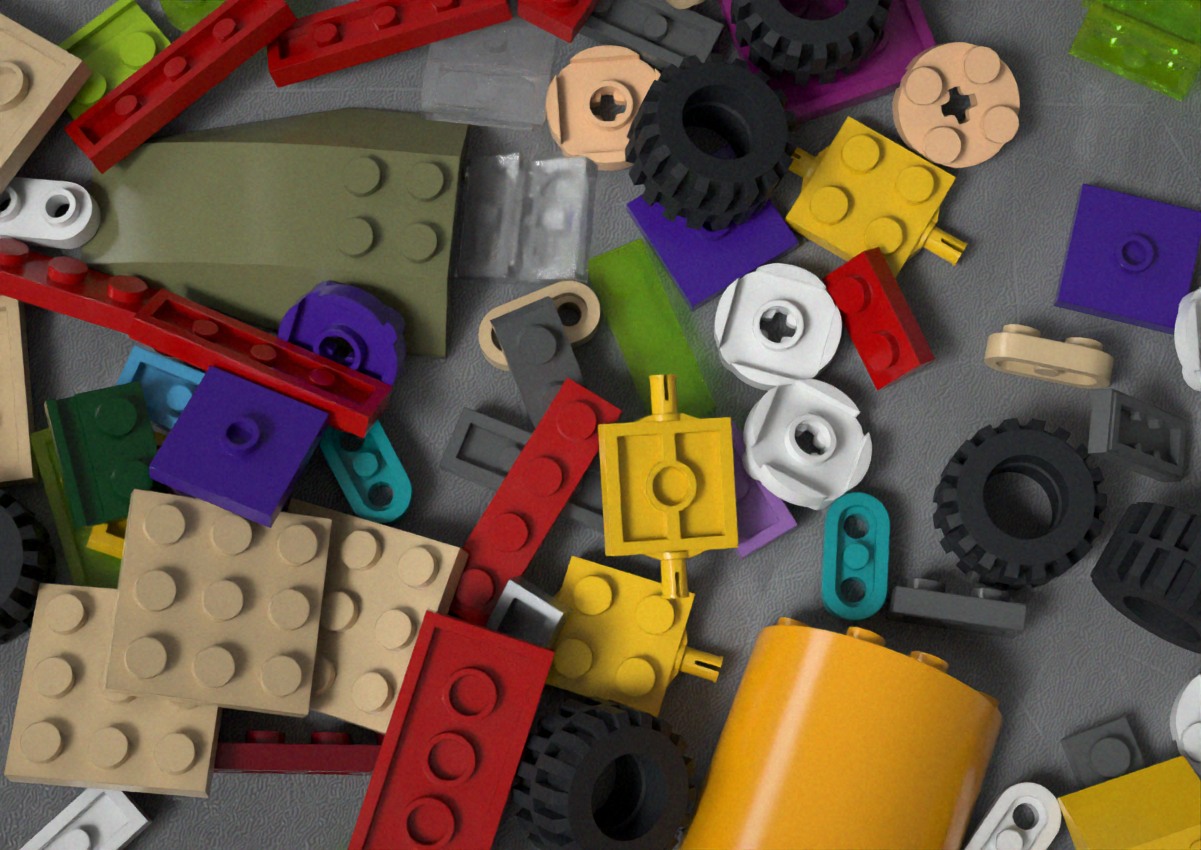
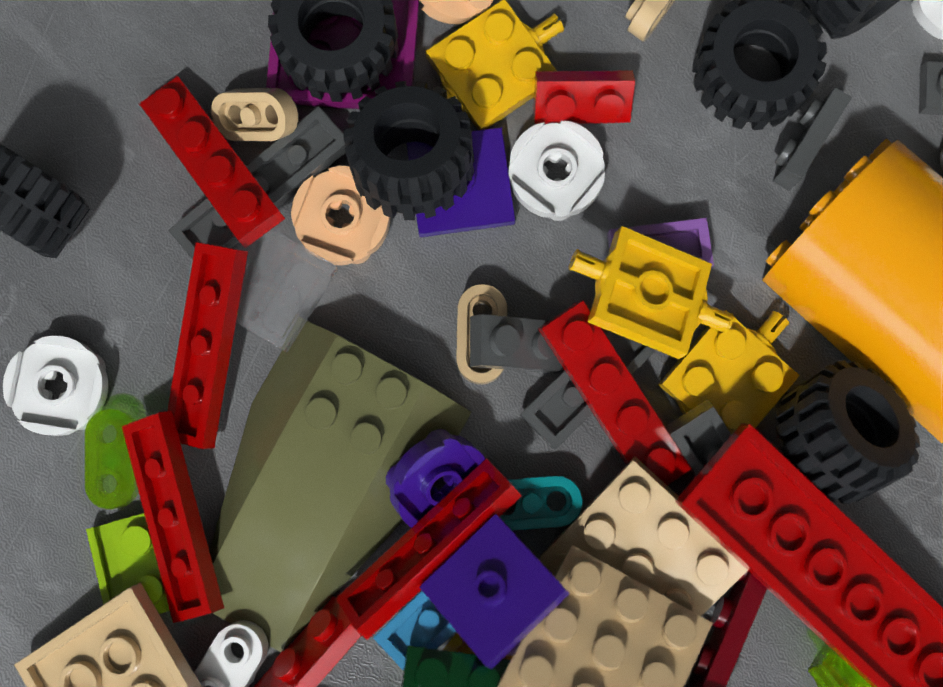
camera: 65 degrees left, 5 degrees up
(526, 220) = (398, 309): clear slope -> none
(647, 326) = (517, 261): clear neon green plate -> none
(779, 462) = (653, 209): white plate -> none
(853, 559) = (744, 186): teal plate -> none

